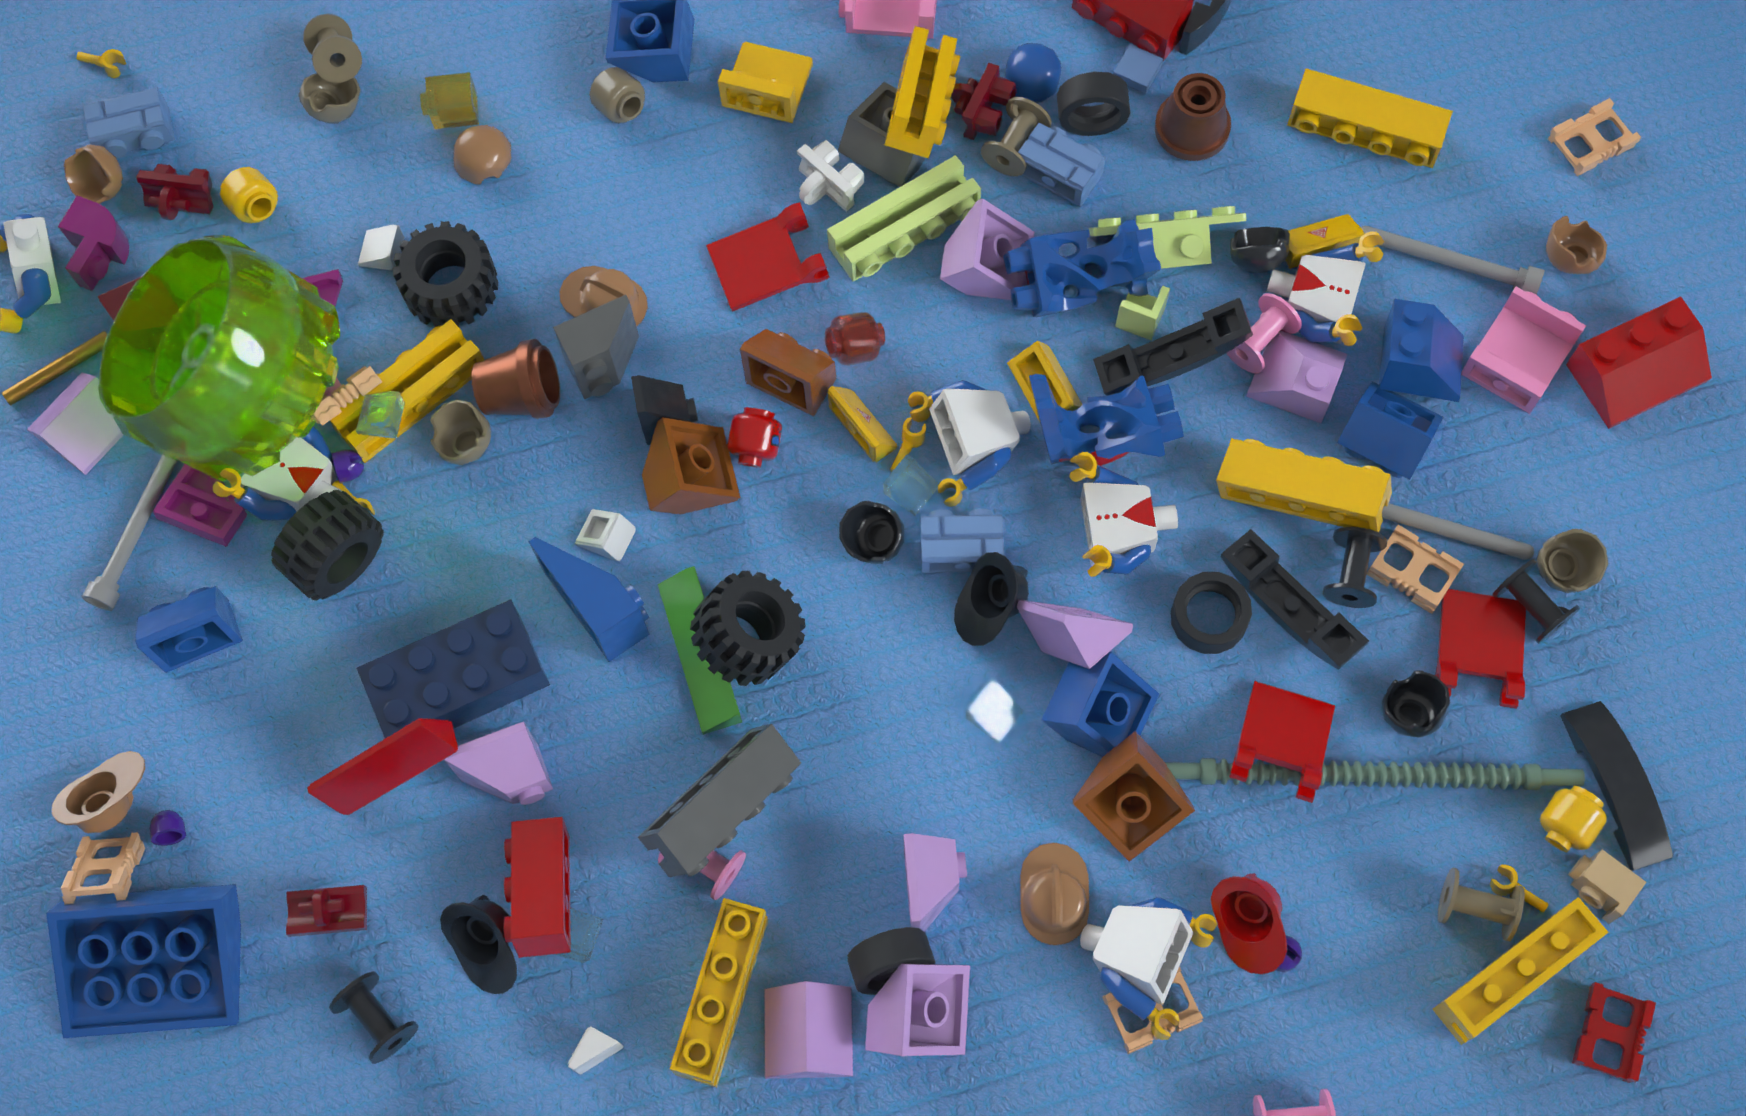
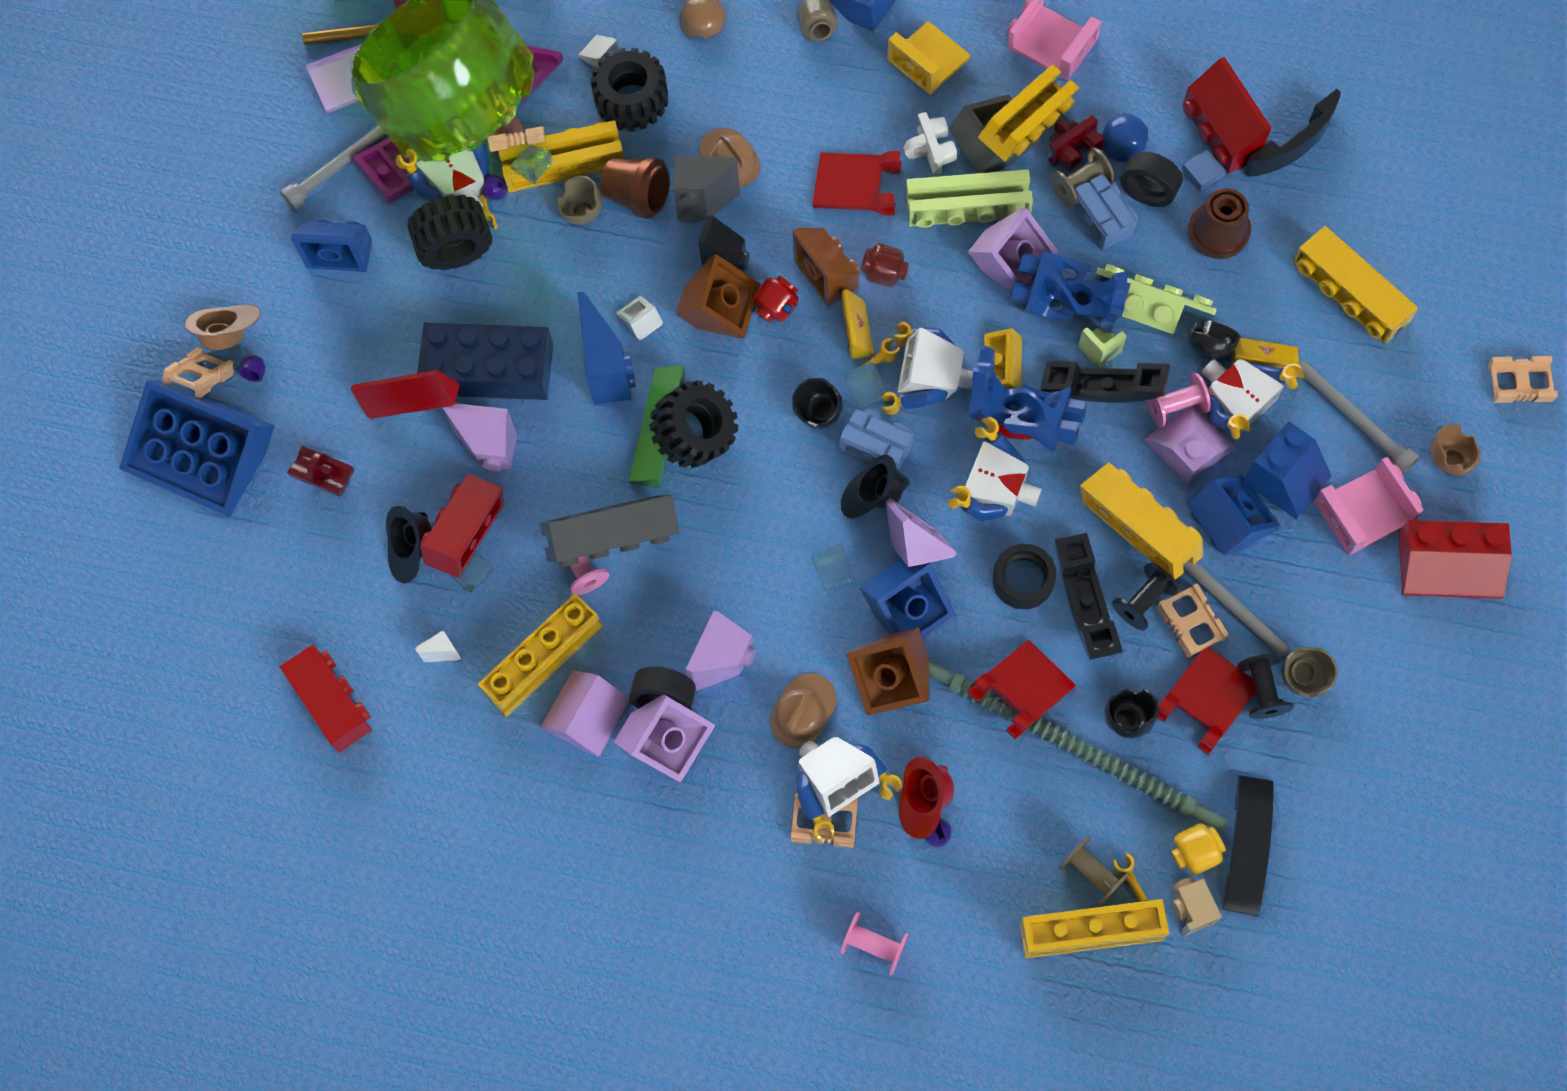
camera: 30 degrees right, 0 degrees up
(373, 1016) = (310, 537): black piece -> none
(1627, 1038) = (1147, 1018): red piece -> none

